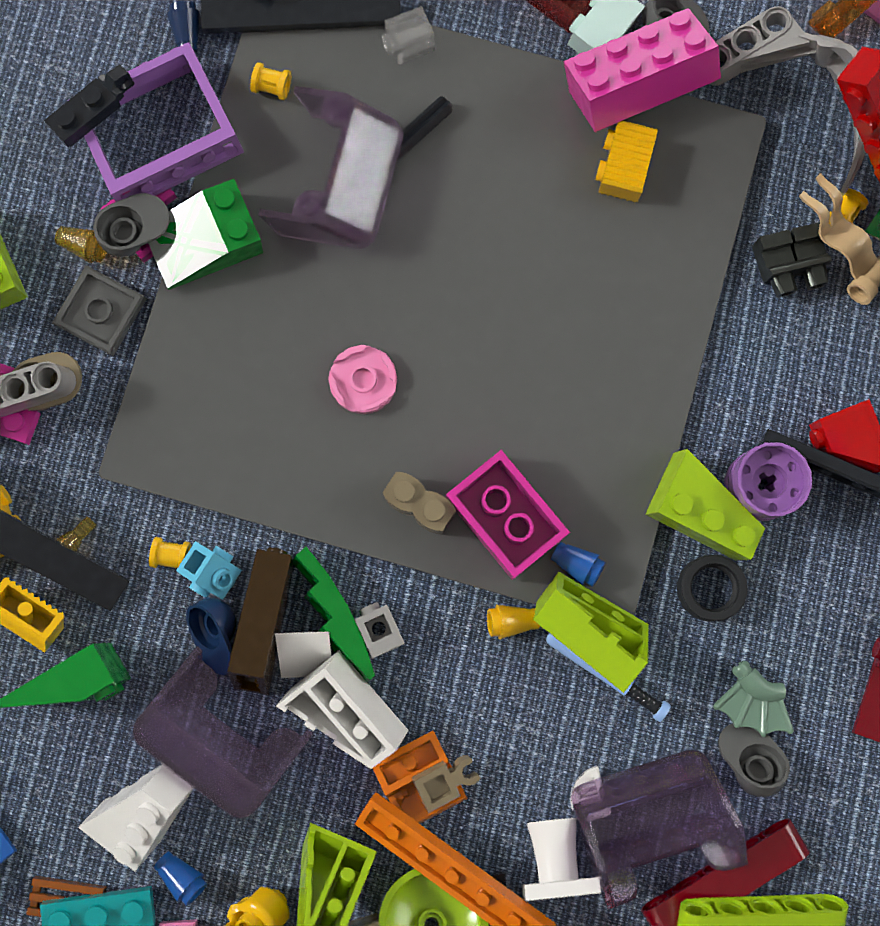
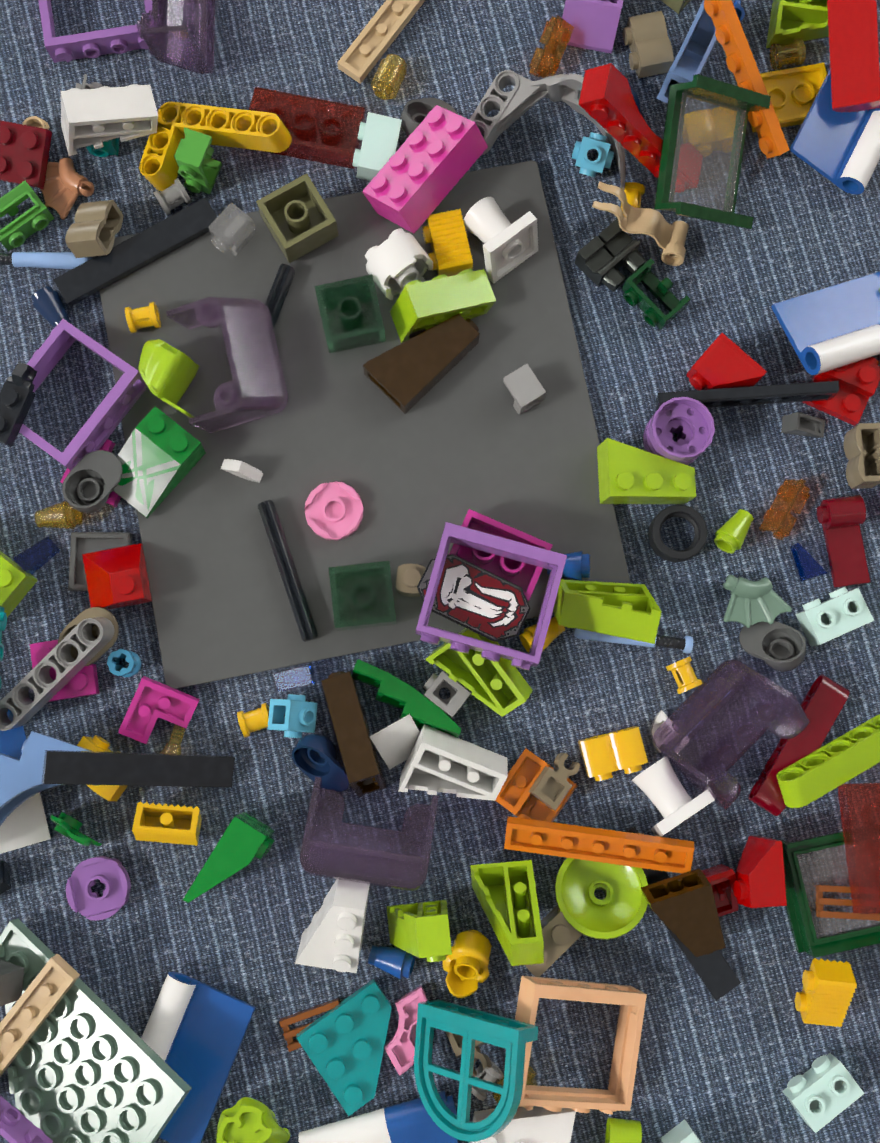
camera: 30 degrees left, 0 degrees up
(39, 272) = (37, 555): none -> clear blue piece
(58, 429) = (129, 656): none -> dark azure bush
(77, 482) = (155, 701): none -> dark pink plate
(107, 335) = (117, 577): none -> red slope
(225, 863) = (421, 929): none -> lime wedge
(232, 532) = (294, 678): none -> clear blue piece
(264, 150) = (167, 372): none -> lime piece
(282, 417) = (287, 571): none -> black axle
(290, 289) = (242, 470): none -> white tile
(344, 483) = (362, 595): none -> clear green brick
(431, 623) = (492, 682): none -> lime wedge
(457, 545) = (477, 599): none -> shield
(482, 56) = (298, 218): none -> olive brick
(485, 182) = (350, 313): none -> clear green brick
(510, 505) = (505, 548): none -> medium lavender window
(522, 784) = (612, 753): none -> yellow brick
(535, 270) = (422, 361): none -> dark brown slope
(562, 156) = (397, 262): none -> white brick
(588, 217) = (436, 300): none -> lime wedge
(627, 352) = (524, 389): none -> light grey panel
(640, 742) = (684, 675): none -> yellow bush
(686, 190) = (504, 243): none -> white plant
(772, 618) = (733, 532): none -> lime cone
(828, 320) = (660, 290): none -> dark green window
(833, 691) = (805, 563): none -> clear blue piece
(835, 764) = (834, 617): none -> light aqua brick
(842, 149) = (604, 158): none -> medium azure brick
(855, 611) = (790, 496): none -> clear orange hinge

